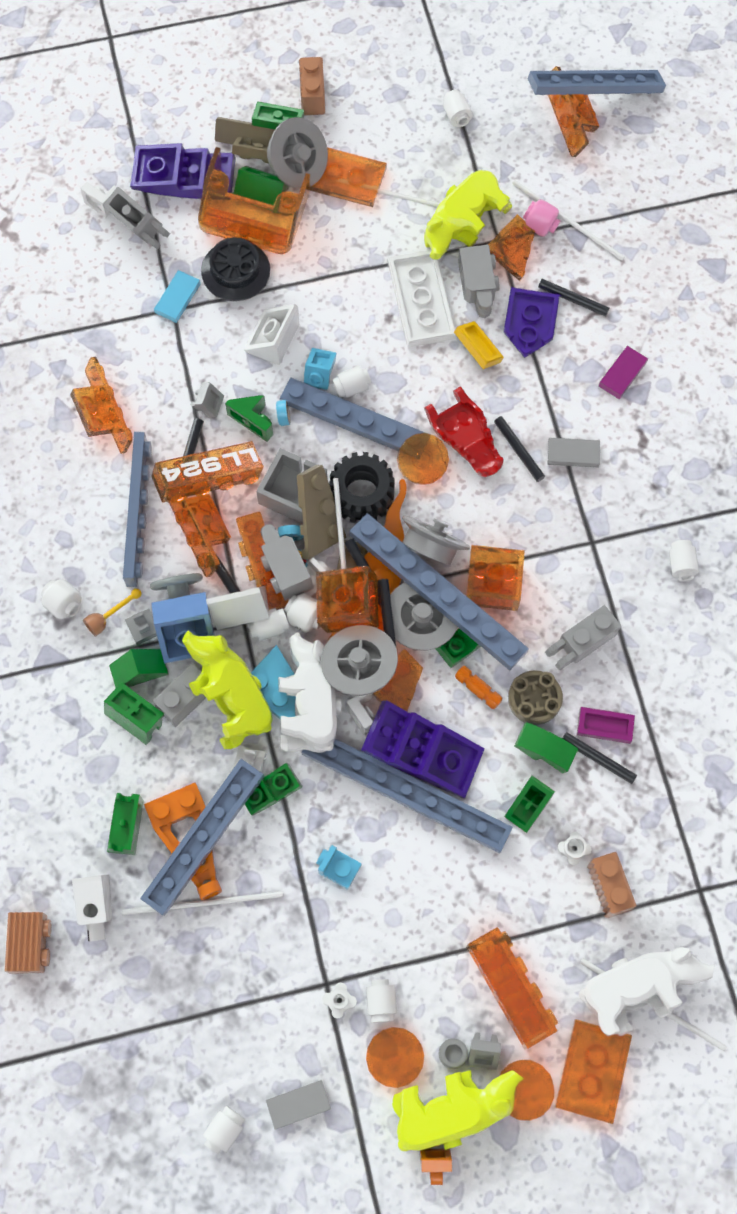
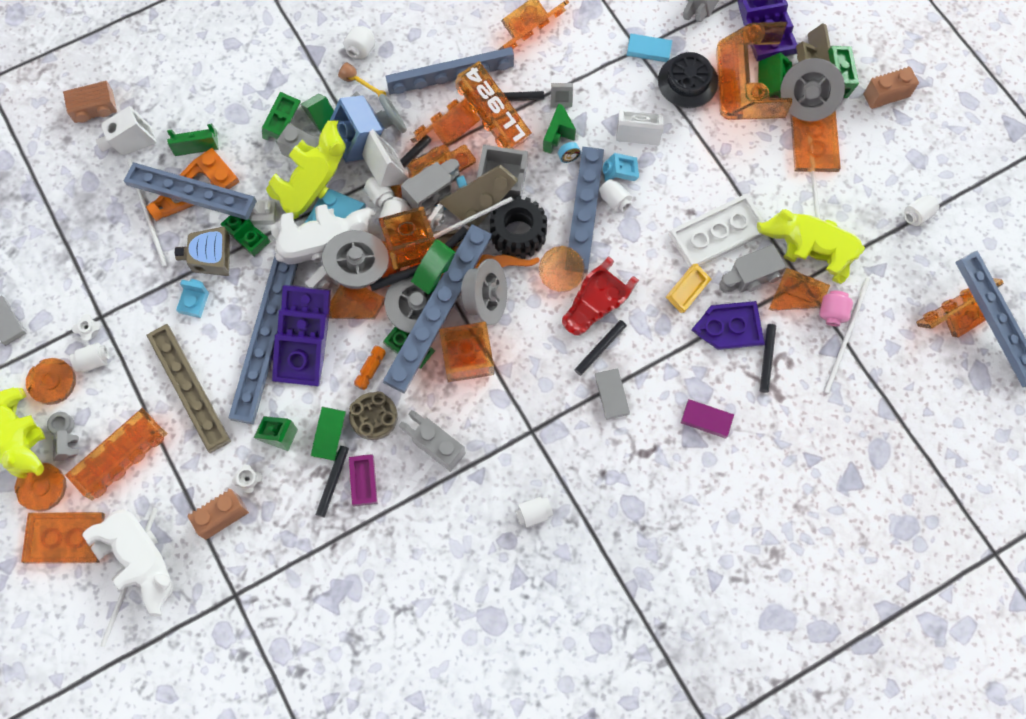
camera: 75 degrees right, 0 degrees up
(285, 836) = (207, 251): none -> torso
(394, 580) = (432, 266): none -> green slope
(446, 894) = (188, 388): none -> dark tan tile

